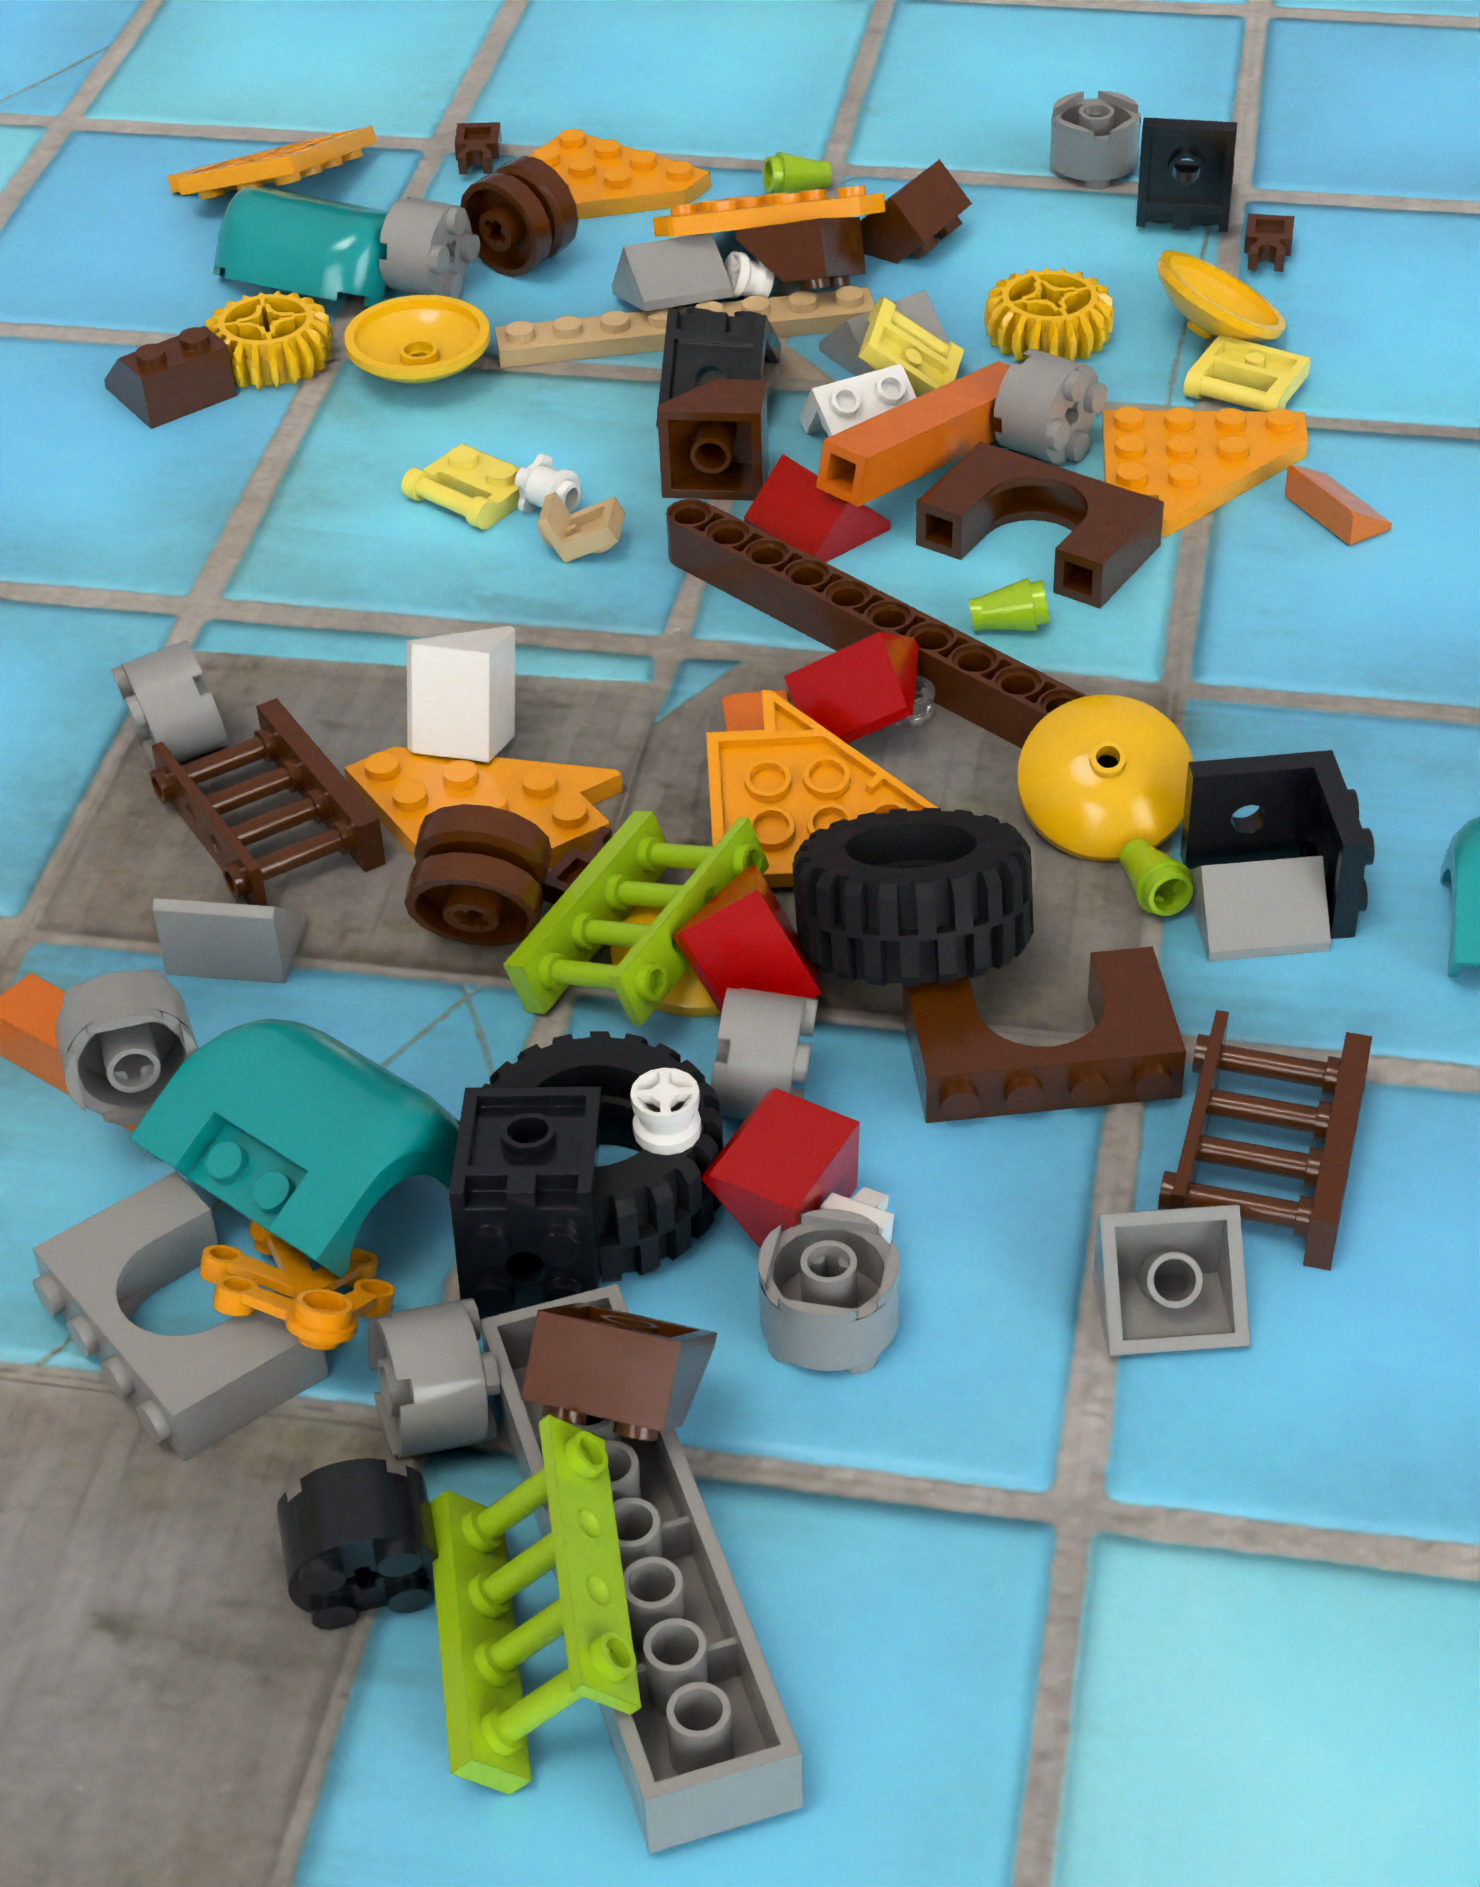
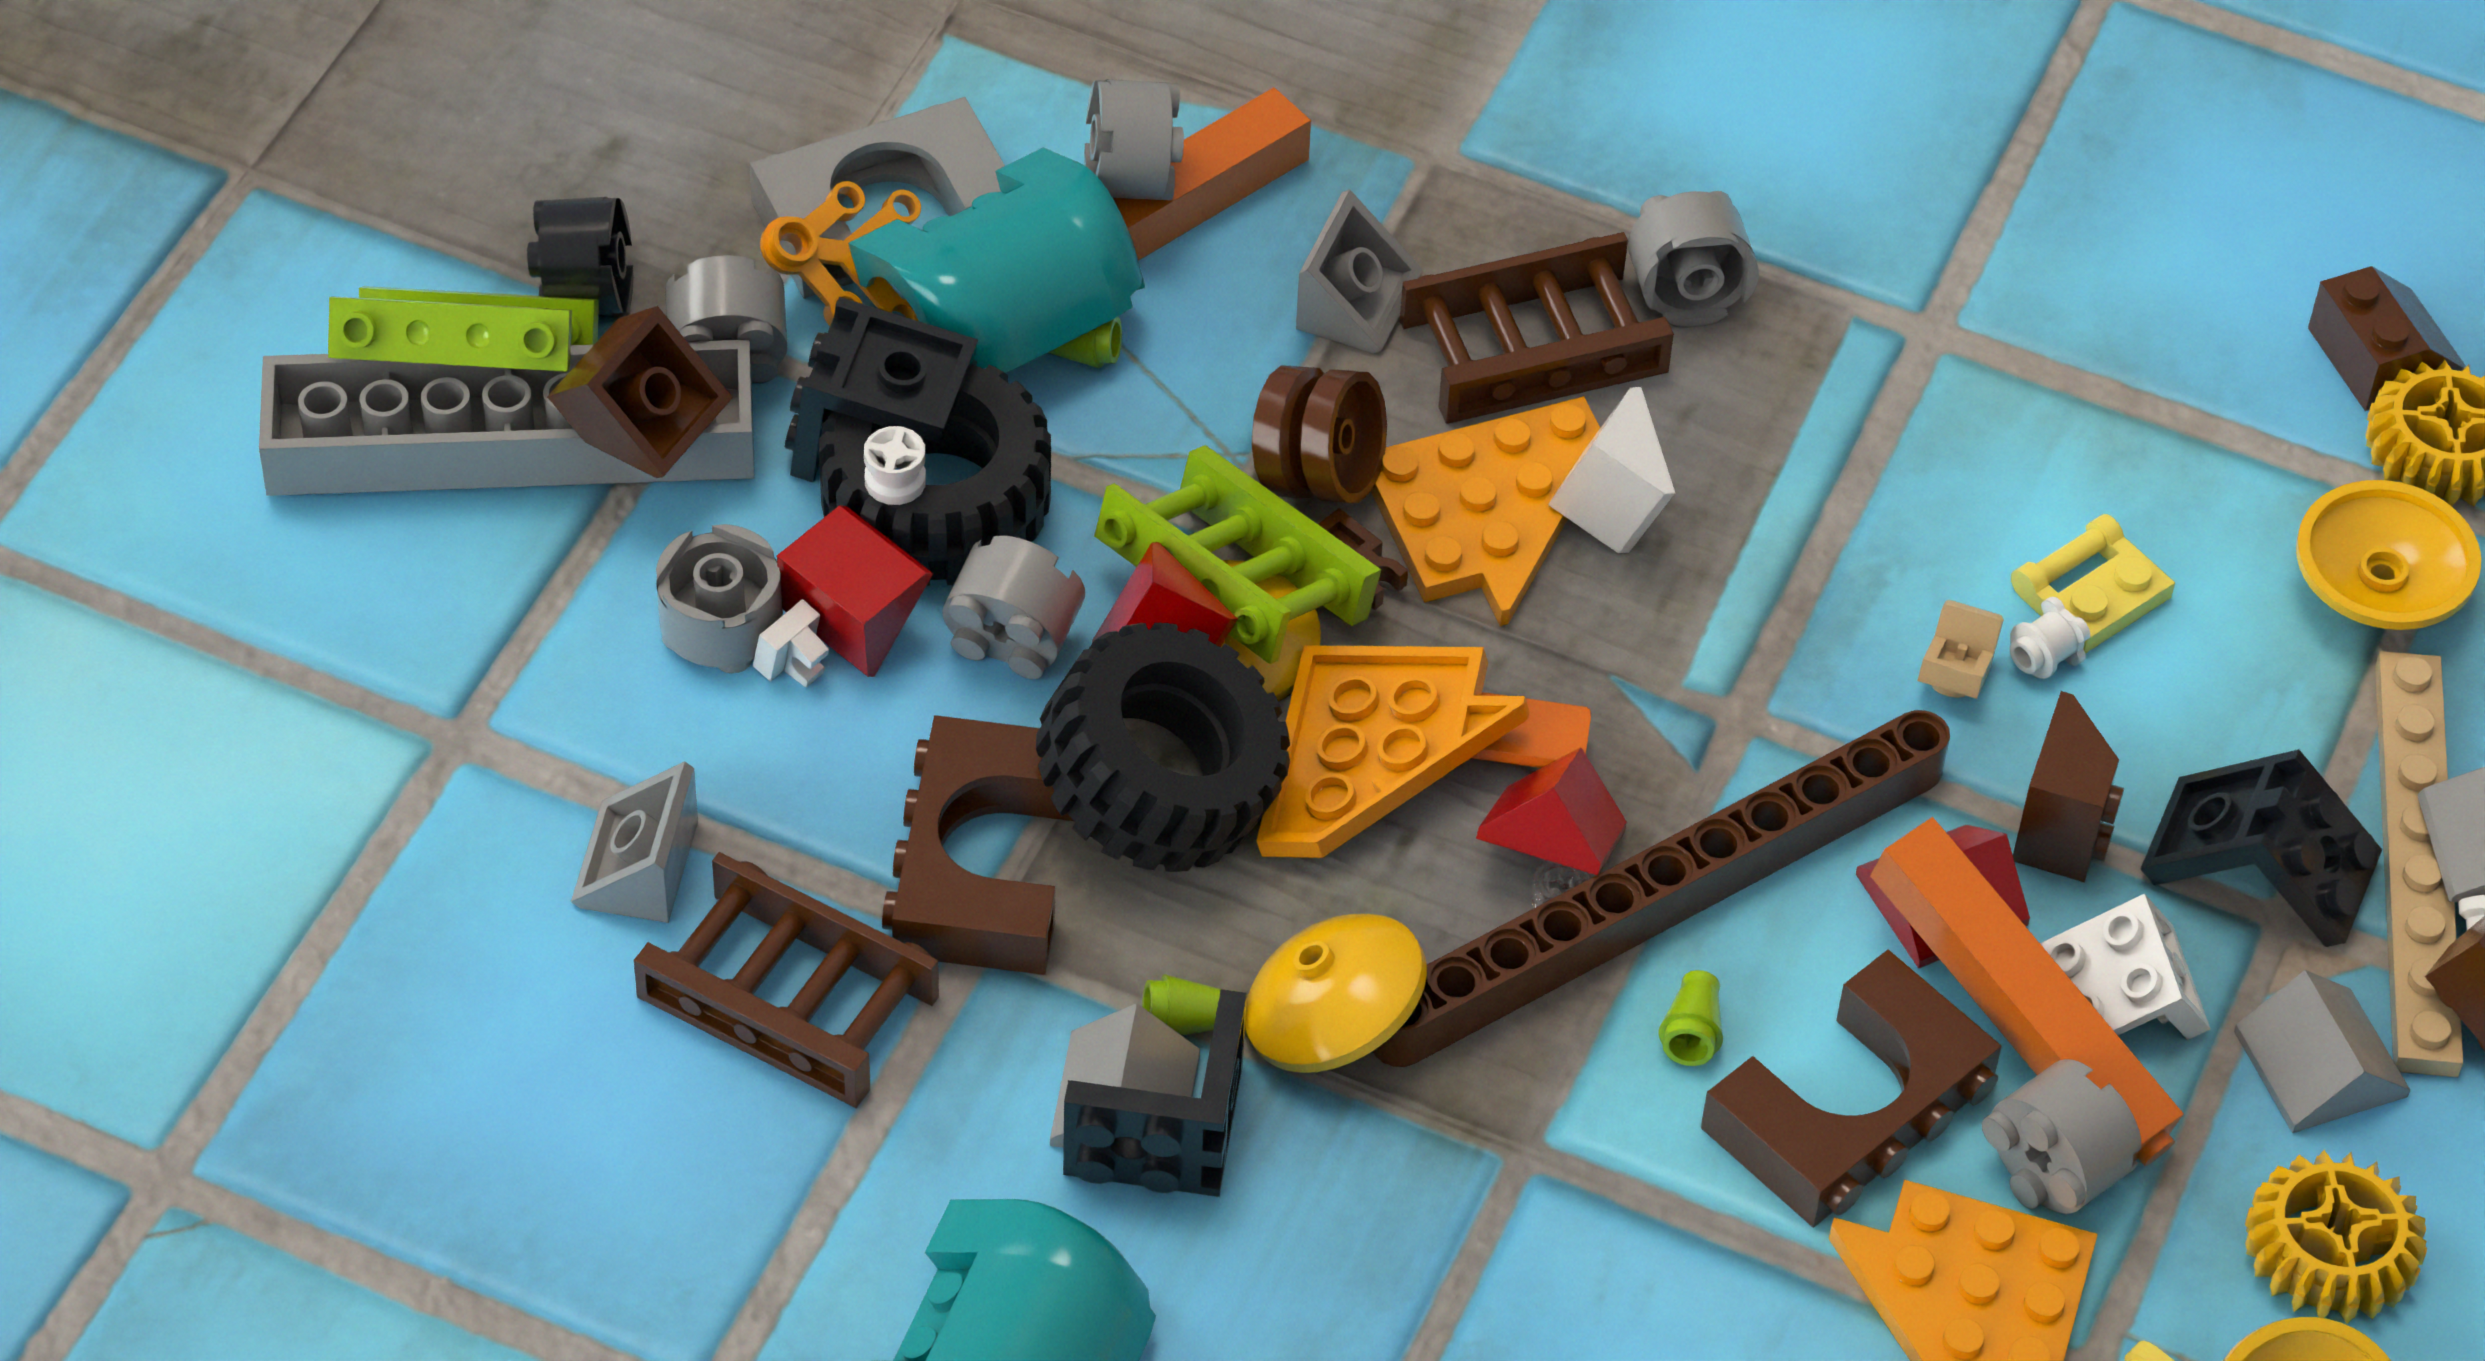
camera: 100 degrees right, 10 degrees up
(898, 340) = (2230, 1033): light yellow plate -> none

